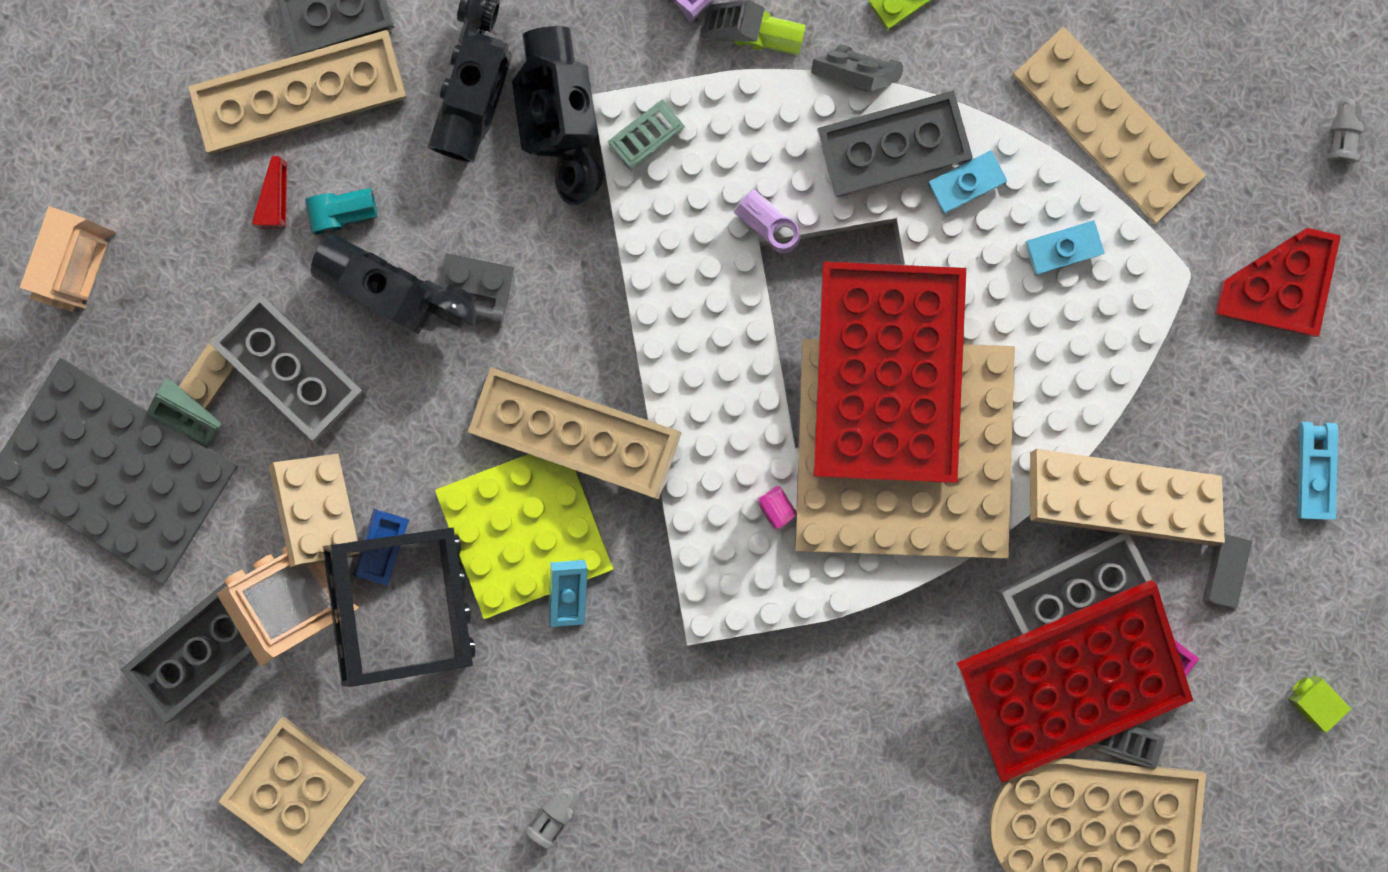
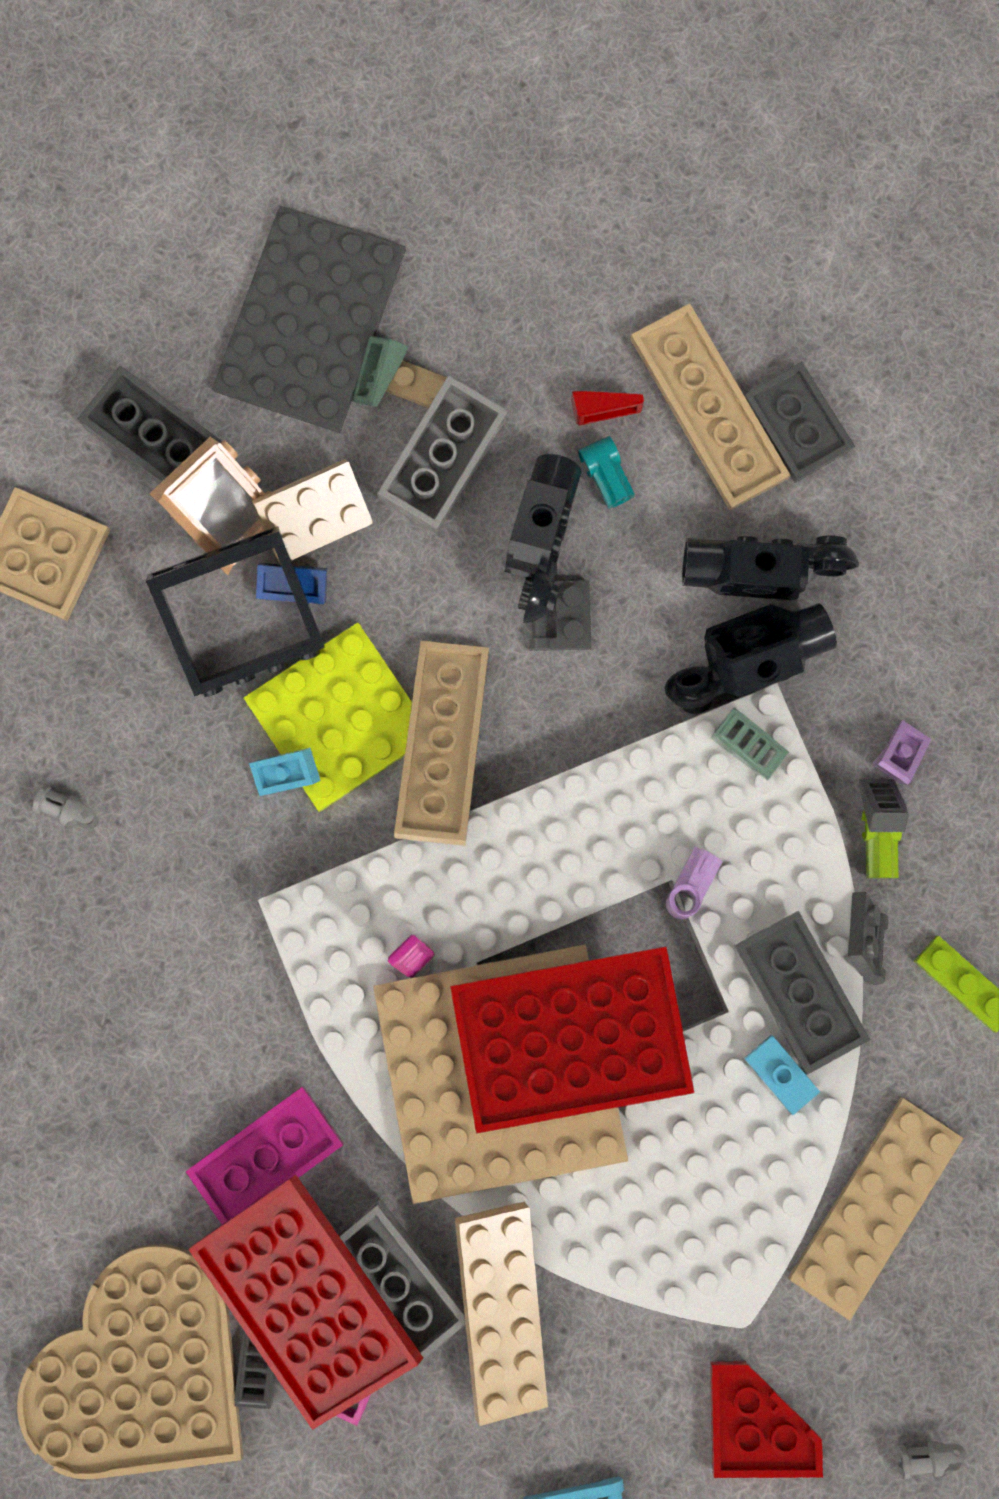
camera: 75 degrees right, 5 degrees down
(65, 260) = (496, 225): light nougat window -> none
(931, 691) = (264, 1155): none -> dark pink plate
(1064, 247) = (740, 1190): medium azure plate -> none
(1227, 571) = (451, 1435): dark grey slope -> none

